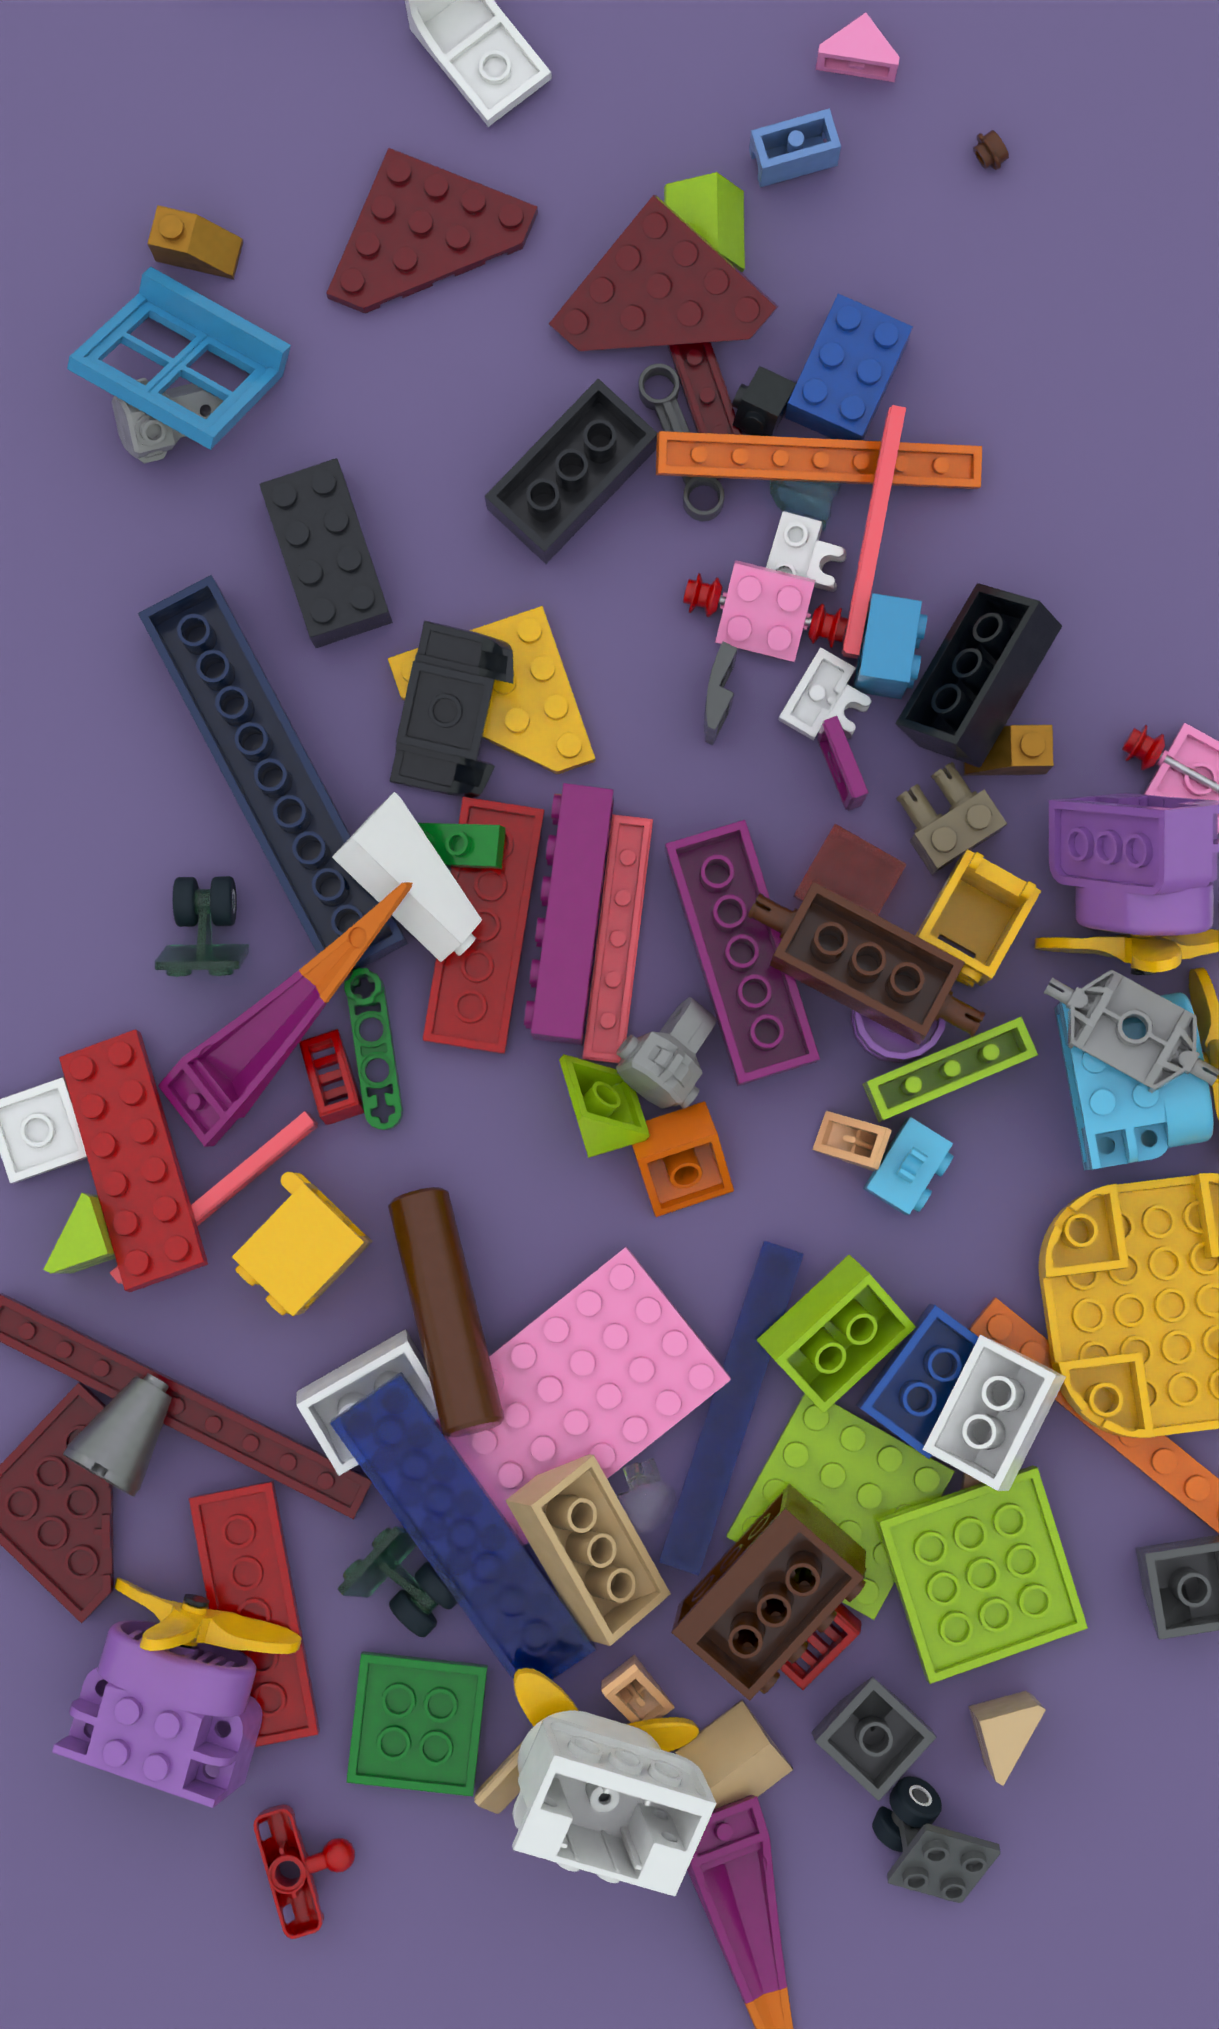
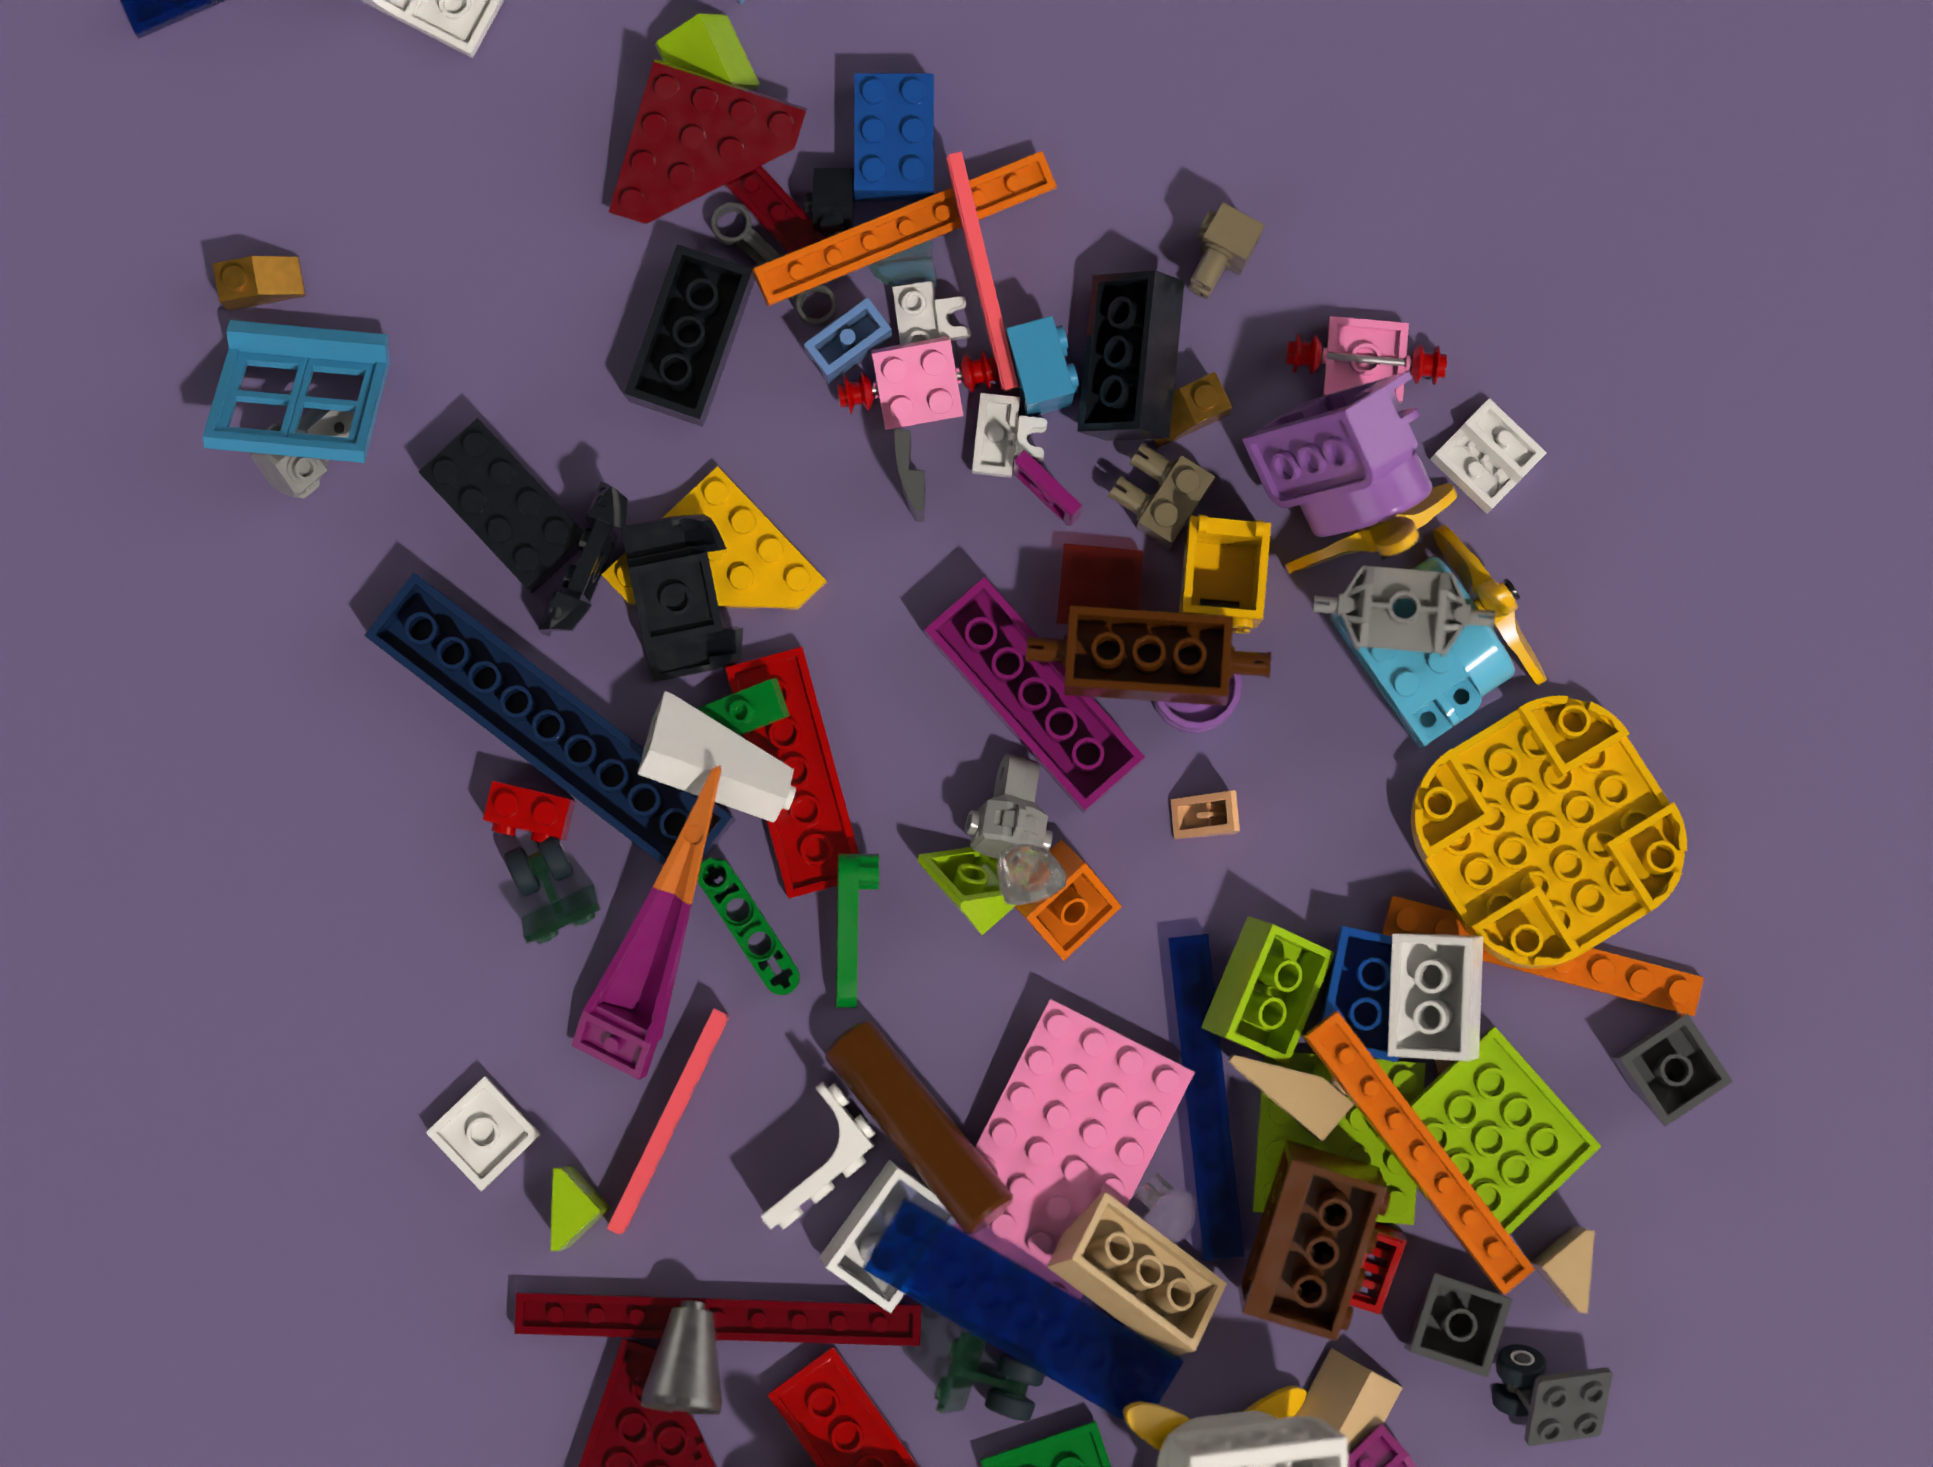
camera: 30 degrees left, 0 degrees up
(133, 1161) = (581, 1121): red plate -> none
(218, 847) = (528, 811): none -> red brick
(300, 1248) = (765, 1130): yellow container -> none
(343, 1109) = (743, 993): red slope -> none
(371, 651) = (569, 608): none -> black piece
(377, 1297) = (852, 1144): none -> white bracket
(423, 229) = (456, 176): dark red plate -> none
(495, 1045) = (854, 874): none -> green beam
(572, 913) = (870, 727): magenta brick -> none
(617, 938) = (918, 730): coral tile -> none
(635, 1692) = (1236, 1383): light nougat slope -> none
(658, 1120) = (1029, 874): none -> clear piece
(718, 541) = (848, 340): none -> medium blue brick
(826, 1452) = (1305, 1097): none -> tan slope
(909, 1167) = (1266, 815): medium azure brick -> none
(910, 1556) = (1419, 1153): none -> orange plate
(950, 1069) = (1262, 714): lime brick -> none
(1118, 611) = (1226, 244): none -> dark tan brick

